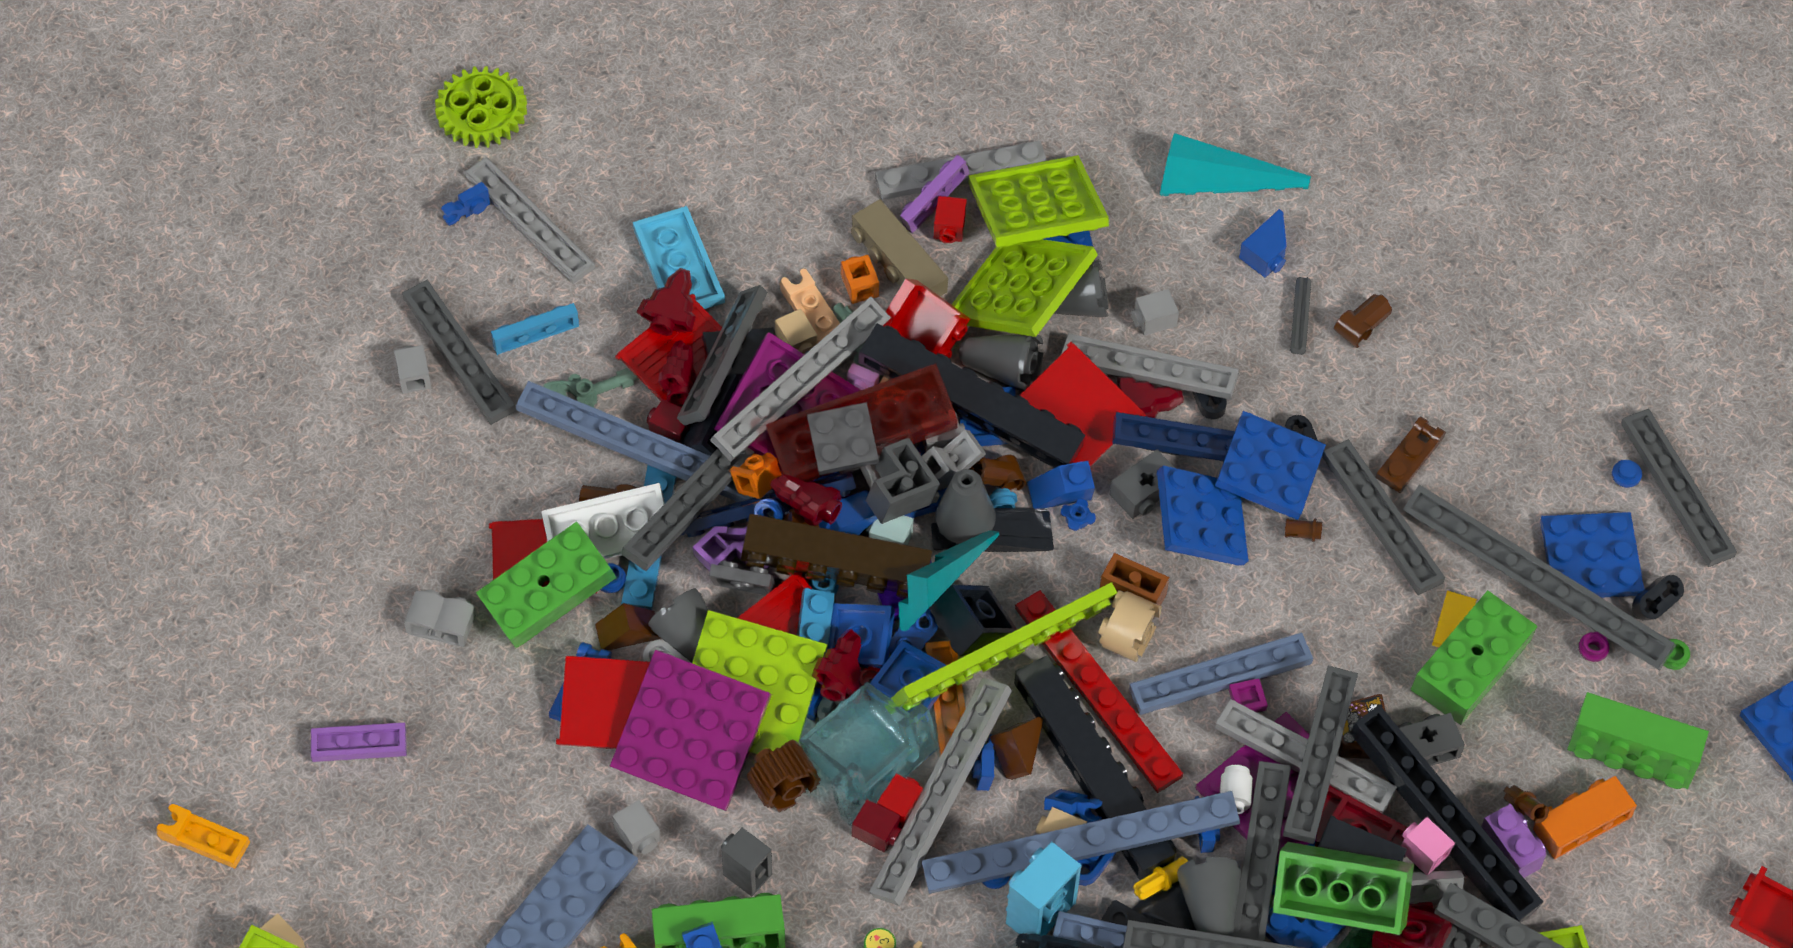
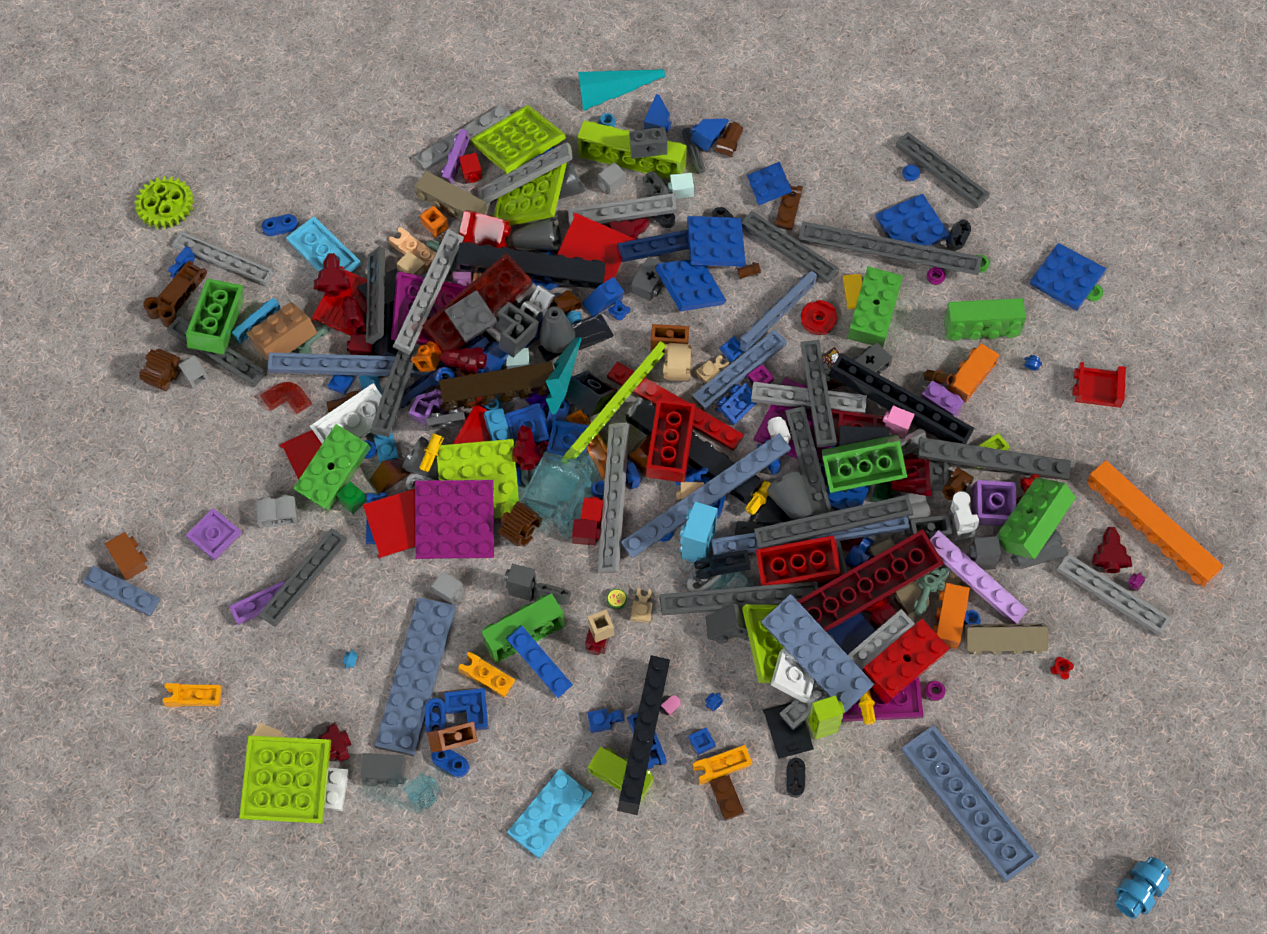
camera: 20 degrees left, 5 degrees up
(172, 646) = (121, 590): none -> sand blue plate
(199, 598) = (126, 556): none -> dark orange brick
(336, 616) = (213, 534): none -> medium lavender plate
(366, 346) = (160, 369): none -> reddish brown brick
(434, 728) = (303, 577): none -> dark grey plate
(436, 246) = (175, 294): none -> reddish brown piece
(449, 875) = (350, 659): none -> dark azure plate
(477, 299) = (215, 316): none -> bright green brick
(529, 449) = (286, 392): none -> clear red plate
(556, 639) = (351, 497): none -> green brick
(564, 357) = (282, 331): none -> medium nougat brick
(617, 466) = (340, 383): none -> blue plate
(632, 201) = (279, 225): none -> blue plate
(698, 616) = (431, 451): none -> yellow axle
(794, 903) = (561, 595): none -> dark grey beam
(924, 769) = (598, 489): none -> blue plate
(1024, 256) = (525, 173): none -> light grey plate
(1061, 738) = (670, 440): none -> red brick
(1175, 656) = (710, 370): none -> tan plate
(1191, 217) = (607, 117): none -> dark azure plate
(1192, 724) = (737, 403): none -> blue bracket
(1203, 281) = (612, 145): none -> lime brick
(1223, 345) = (658, 183): none -> dark grey beam
(1223, 637) = (731, 349): none -> blue plate
(1226, 277) = (648, 142): none -> dark grey brick
(1256, 362) = (681, 185): none -> light aqua brick
(1325, 605) = (781, 307): none -> sand blue plate
(1333, 296) = (707, 132): none -> blue slope
(1385, 628) = (819, 309): none -> red plate
(1394, 408) = (769, 183): none -> blue plate
(1687, 838) = (1032, 362): none -> blue plate

